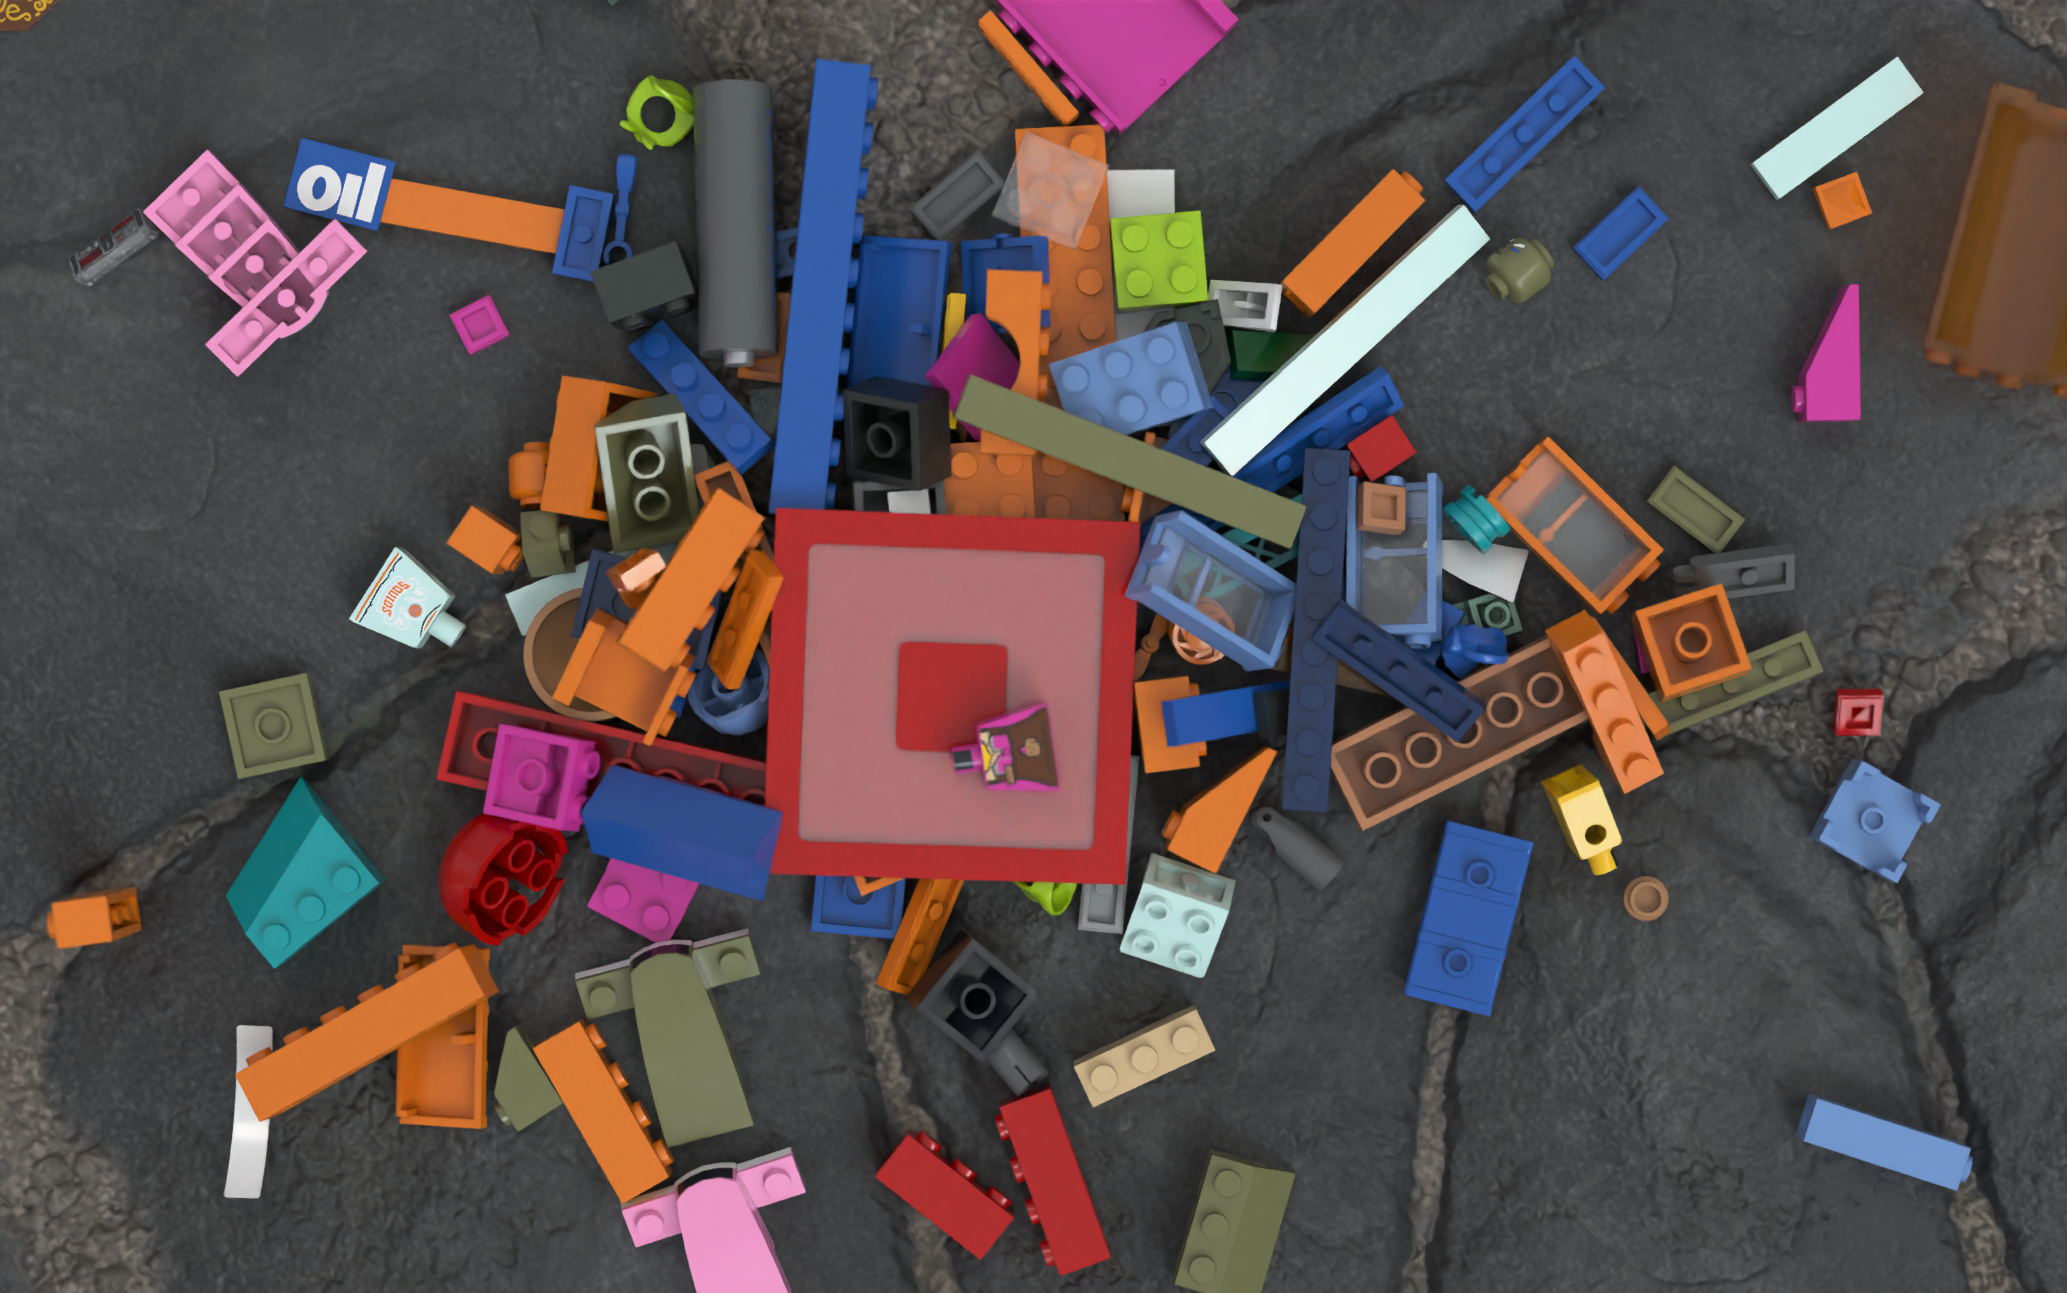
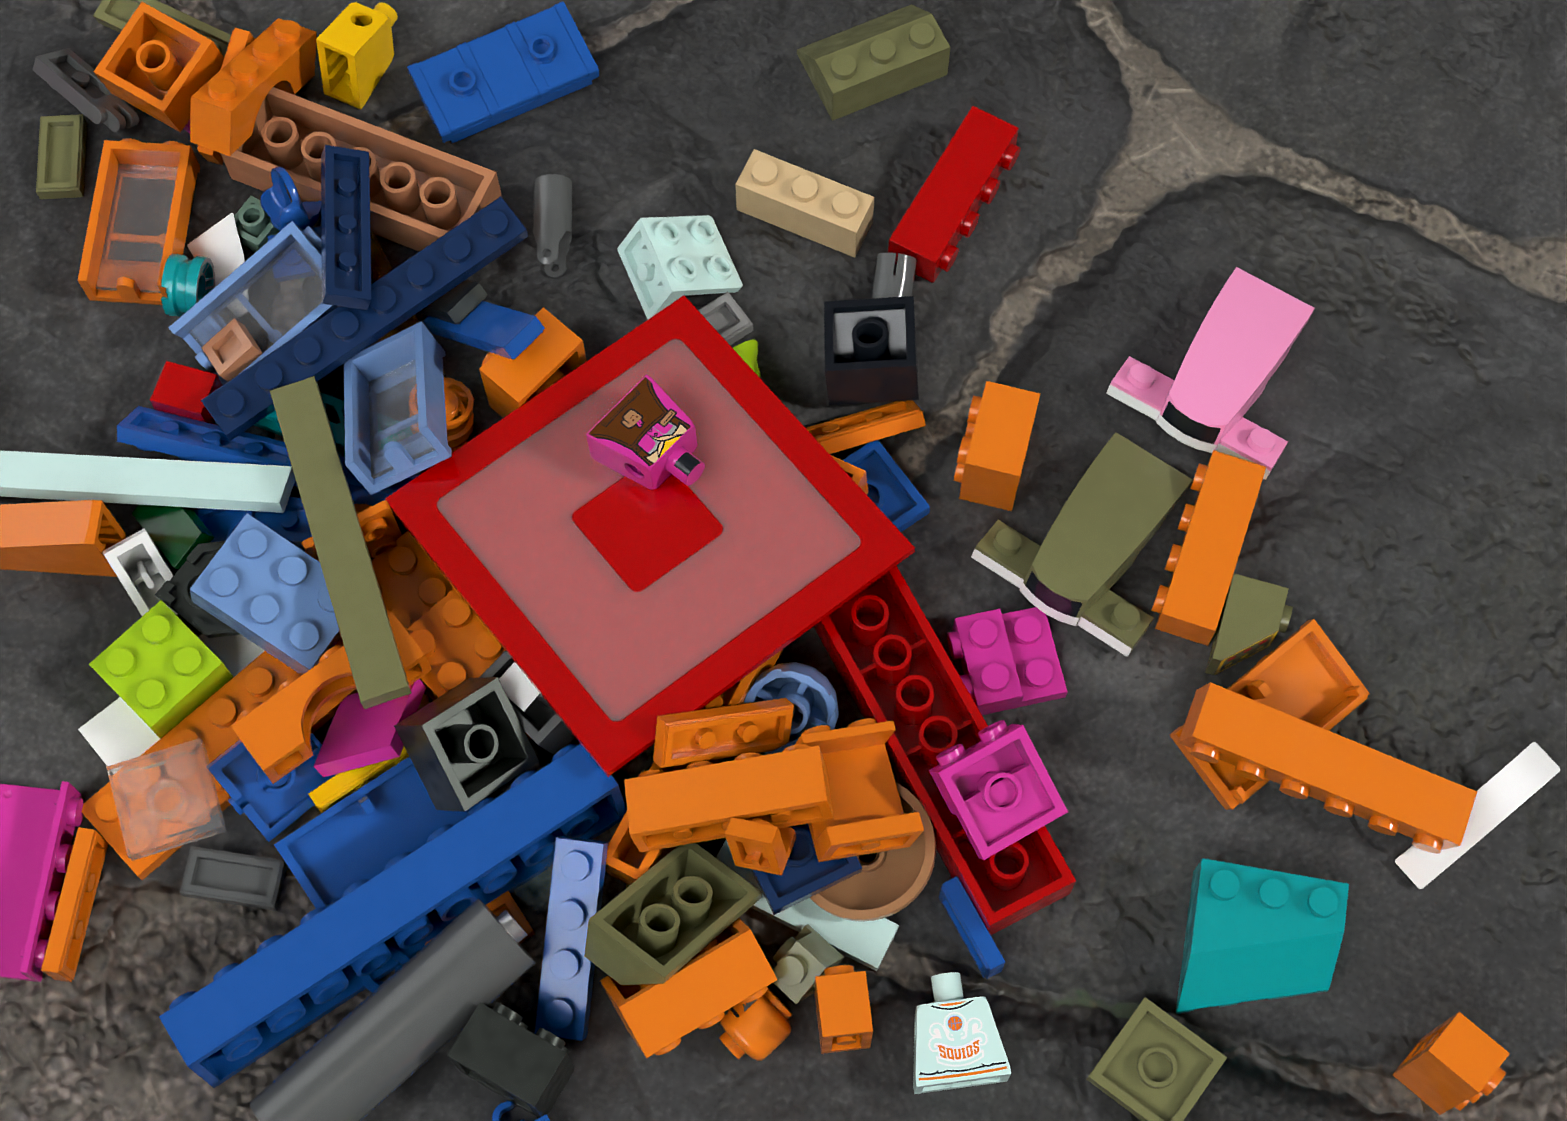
camera: 130 degrees left, 20 degrees down
(475, 683) = (971, 928): none -> blue tile
(483, 861) = (1123, 792): red cylinder -> none
(683, 831) = (935, 638): blue slope -> none
(809, 1019) = (995, 445): none -> orange brick
(946, 1192) = (1034, 258): red brick -> none
(1213, 816) = (575, 282): orange slope -> none

